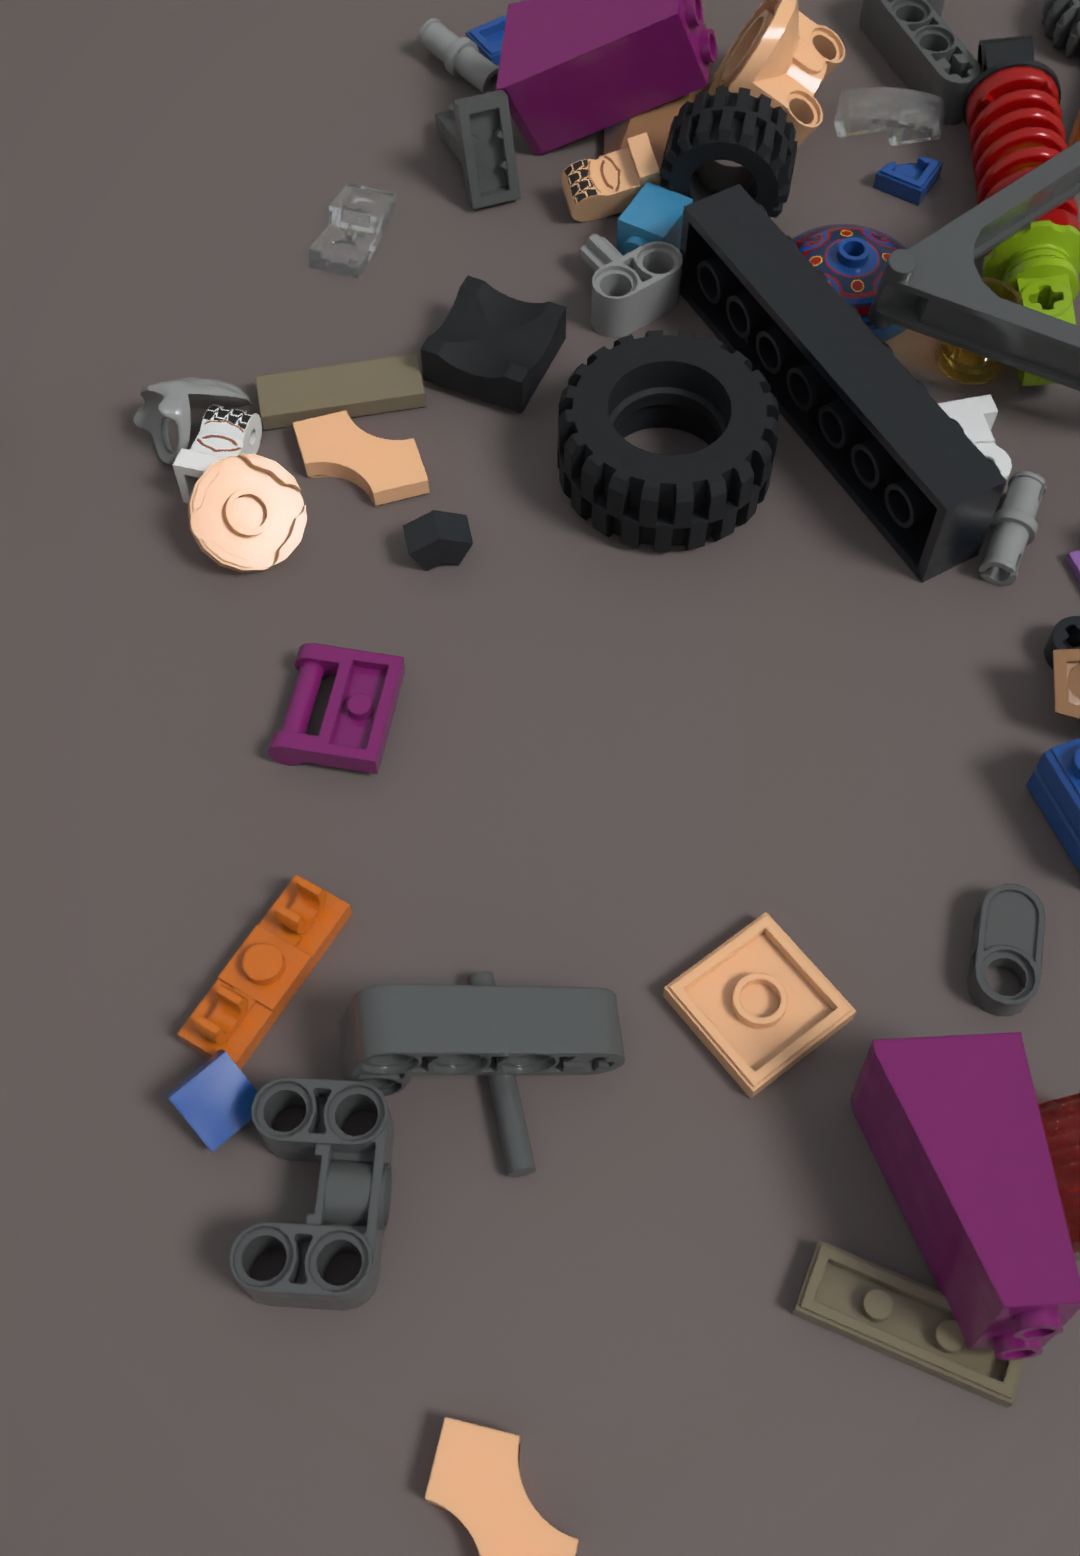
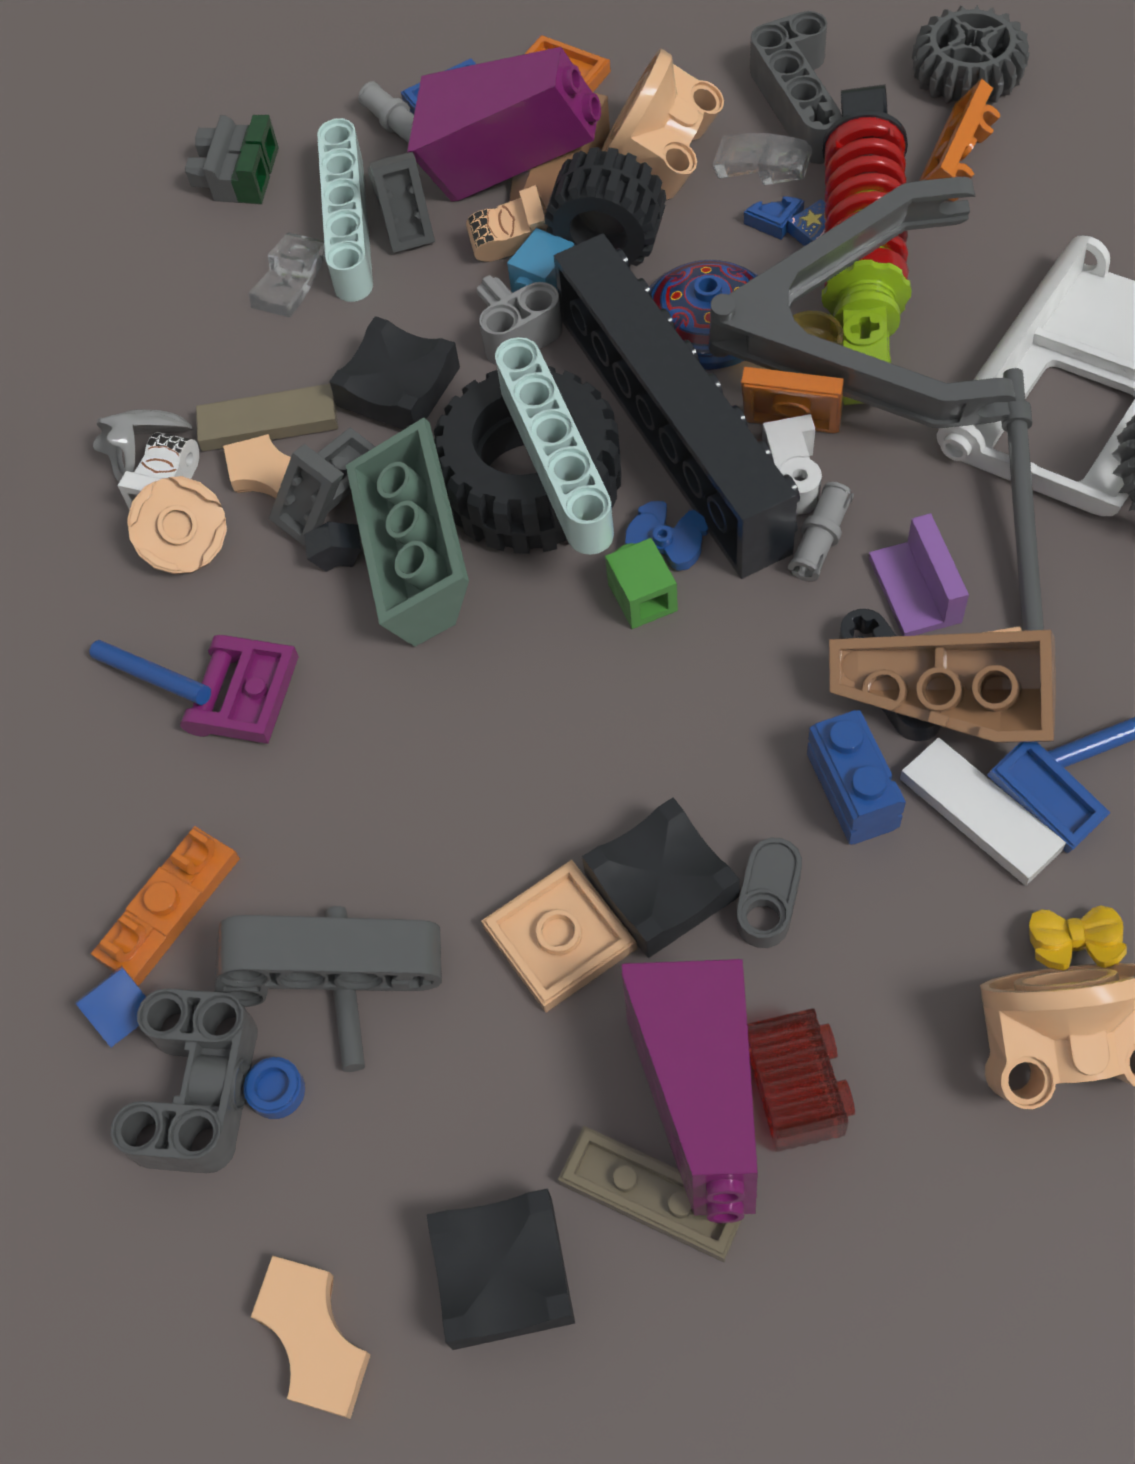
camera: 10 degrees right, 0 degrees up
(226, 687) = (150, 672): none -> blue bar
(277, 100) = (235, 159): none -> hips
(415, 159) = (344, 210): none -> light aqua beam
(419, 465) = (316, 484): none -> dark grey bracket
(424, 1199) = (274, 1088): none -> blue tile
(541, 524) = (409, 535): none -> sand green slope
(717, 421) = (555, 446): none -> light aqua beam
(742, 1428) = (500, 1270): none -> black brick
(812, 584) = (641, 582): none -> bright green brick
(847, 541) = (679, 544): none -> blue piece
(880, 933) = (661, 878): none -> black brick
(953, 190) = (808, 224): none -> blue tile
(970, 369) = (783, 395): none -> orange tile

